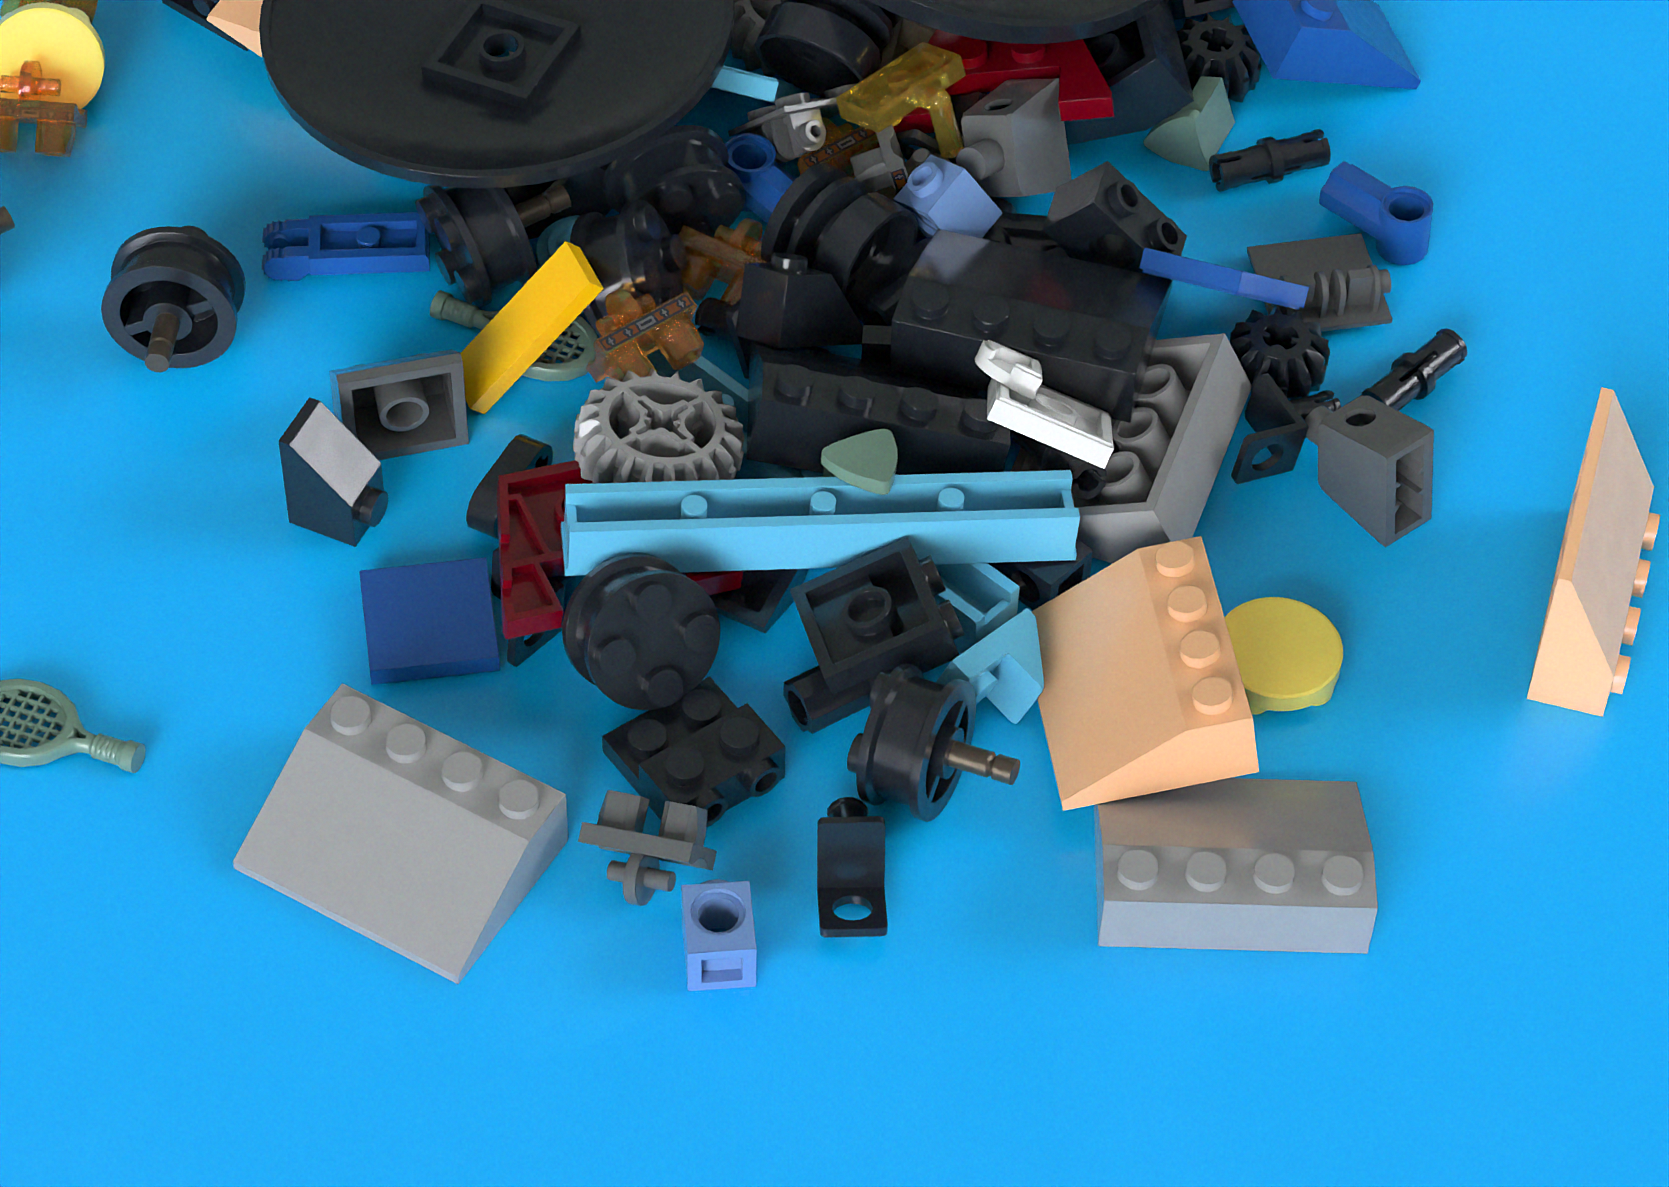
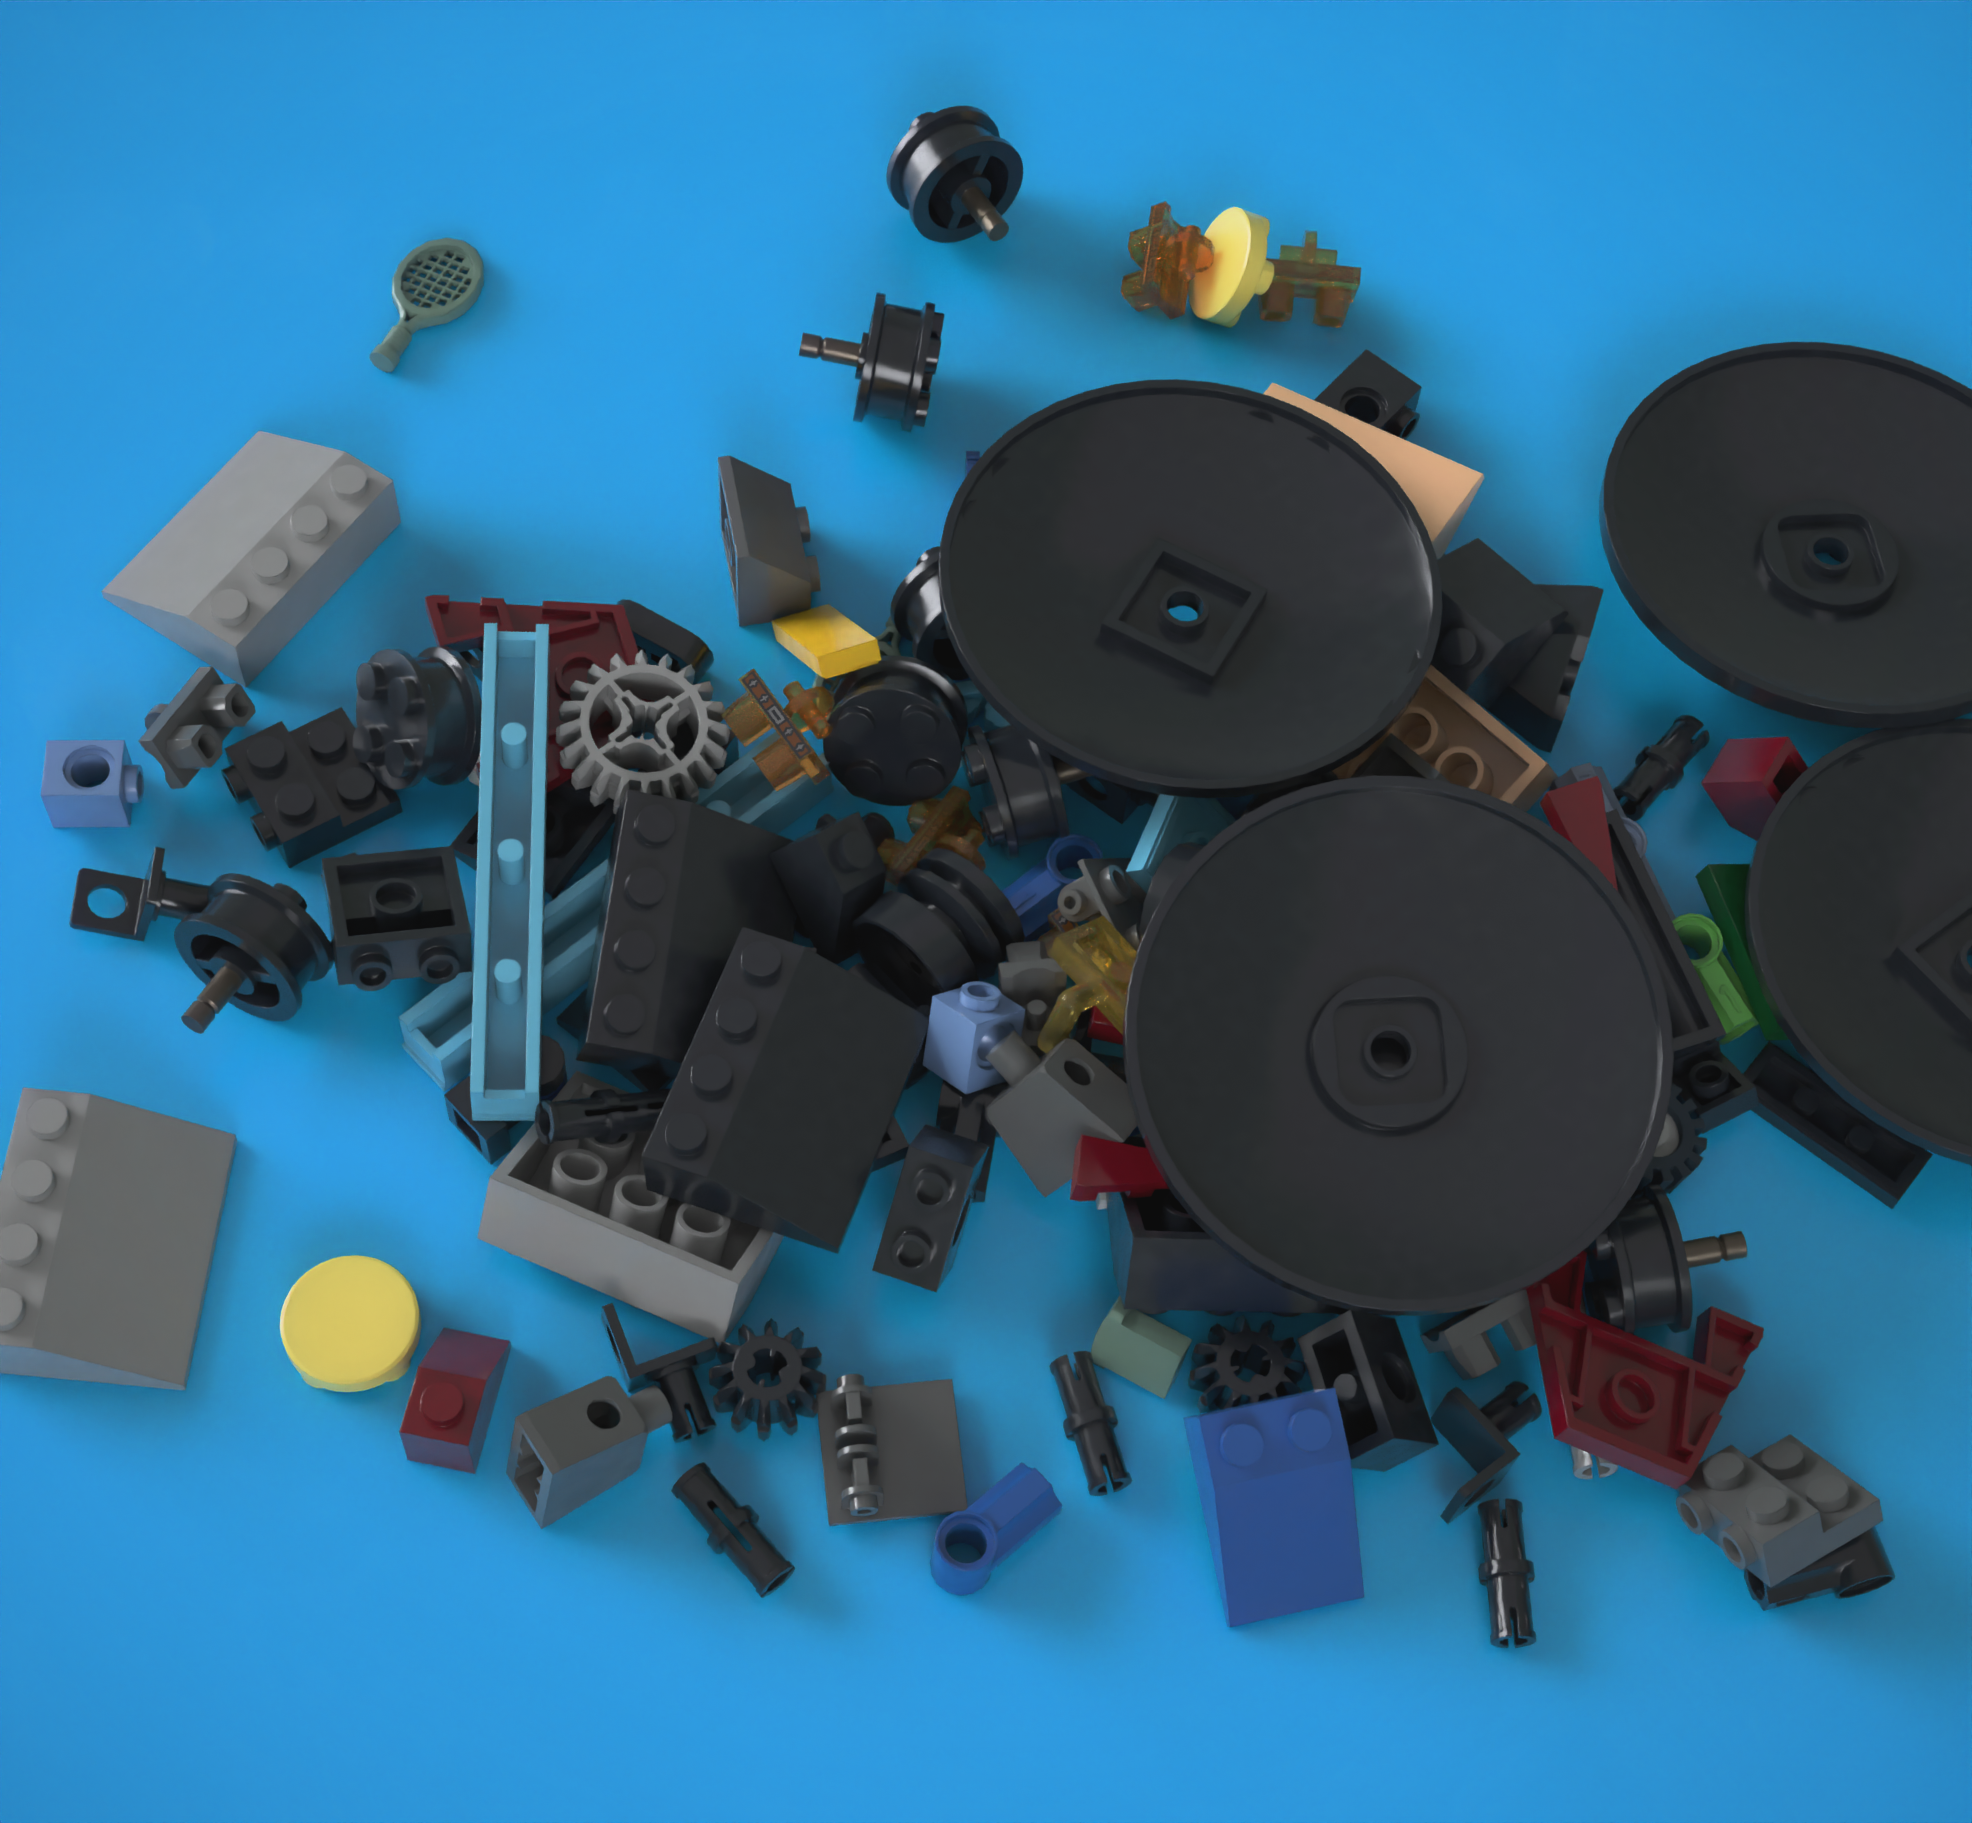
camera: 90 degrees right, 10 degrees up
(330, 476) = (661, 485): black slope -> none
(429, 620) = (510, 563): blue tile -> none
(863, 460) = (558, 894): sand green tile -> none
(1003, 666) = (367, 1049): medium azure slope -> none
(1010, 368) = (661, 1036): white tile -> none
(1054, 421) = (609, 1077): white tile -> none
(1142, 680) = (305, 1172): light nougat slope -> none
(1223, 279) = (835, 1303): blue tile -> none
(1337, 565) = (454, 1400): none -> slope
(1597, 571) = (379, 1649): light nougat slope -> none

